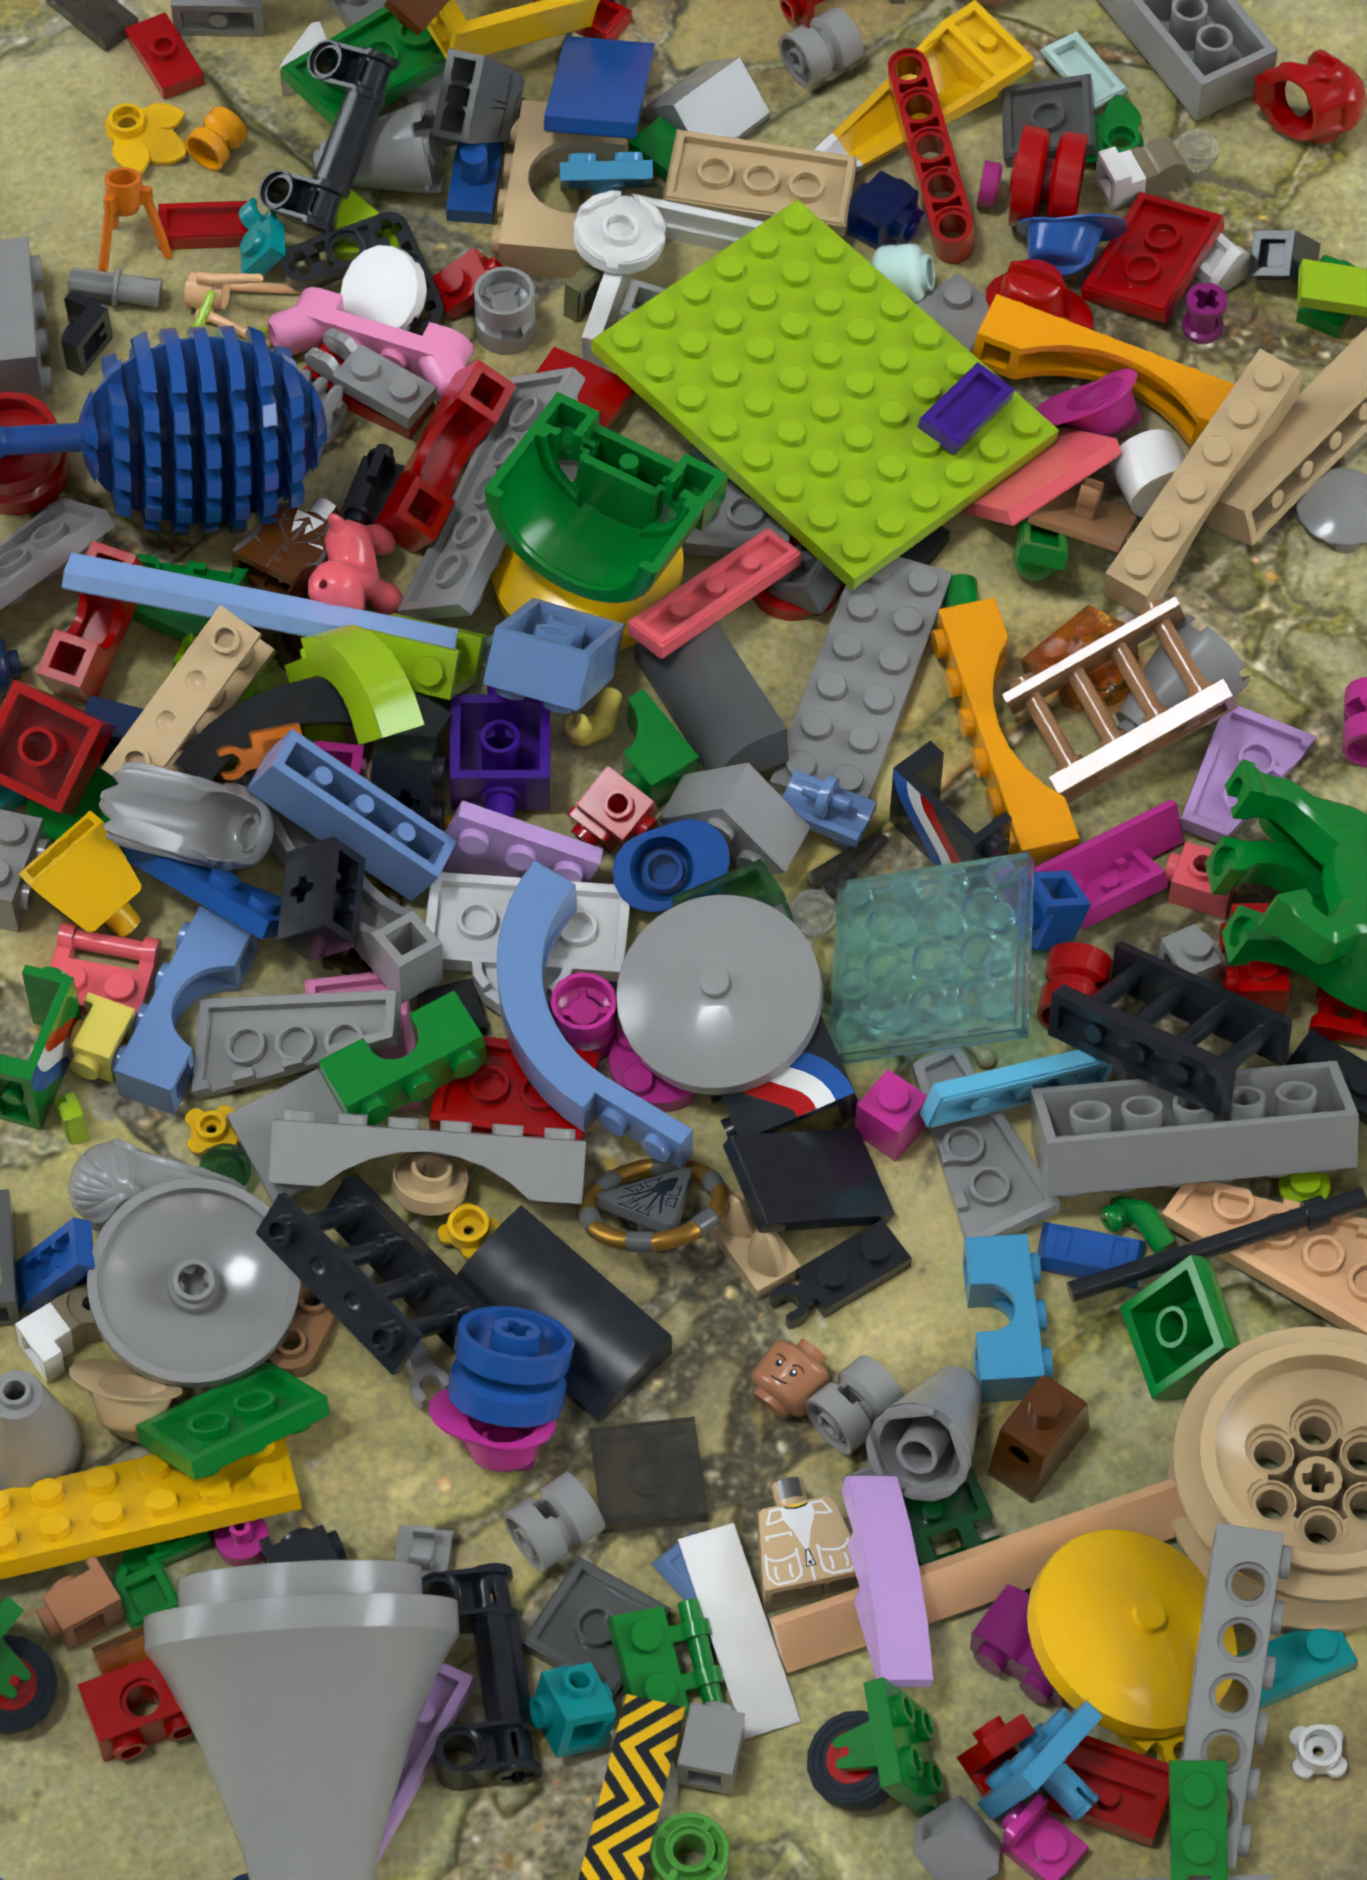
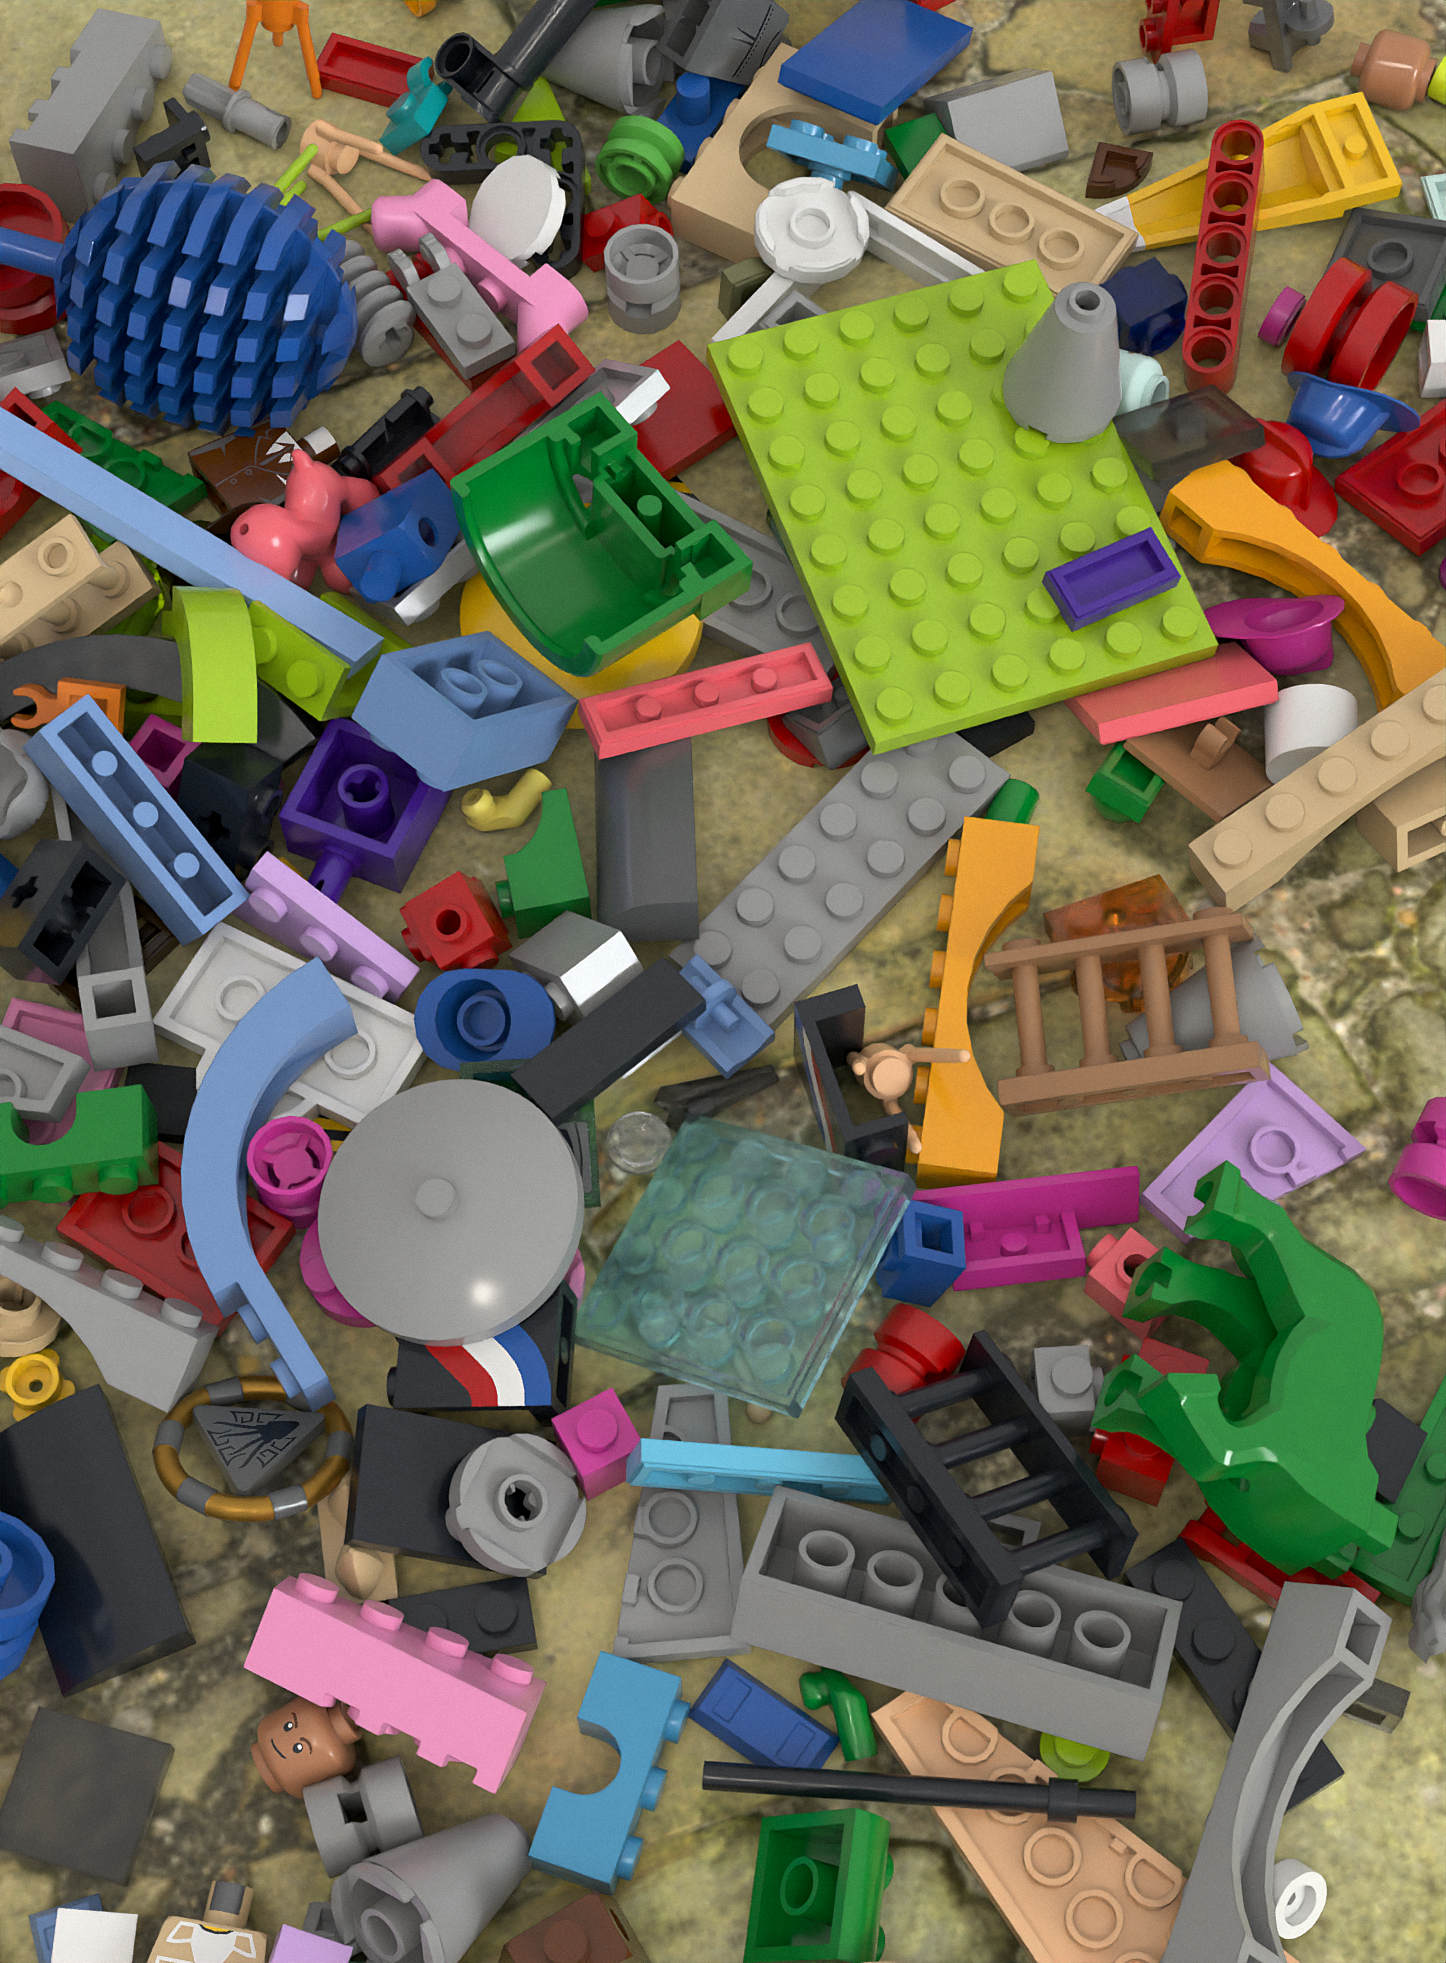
camera: 25 degrees right, 5 degrees up
(432, 554) = (397, 537): none -> blue torso
(455, 222) = (640, 158): none -> bright green wheel
(775, 839) = (609, 1042): none -> black tile
(812, 116) = (1116, 170): none -> reddish brown tile
(836, 1305) = (397, 1676): none -> bright pink wedge
(843, 1185) = (479, 1509): none -> light grey plate
(869, 267) = (1068, 367): none -> light grey cone
(969, 287) = (1187, 433): none -> clear smoke tile
(969, 800) = (889, 1073): none -> light nougat plant

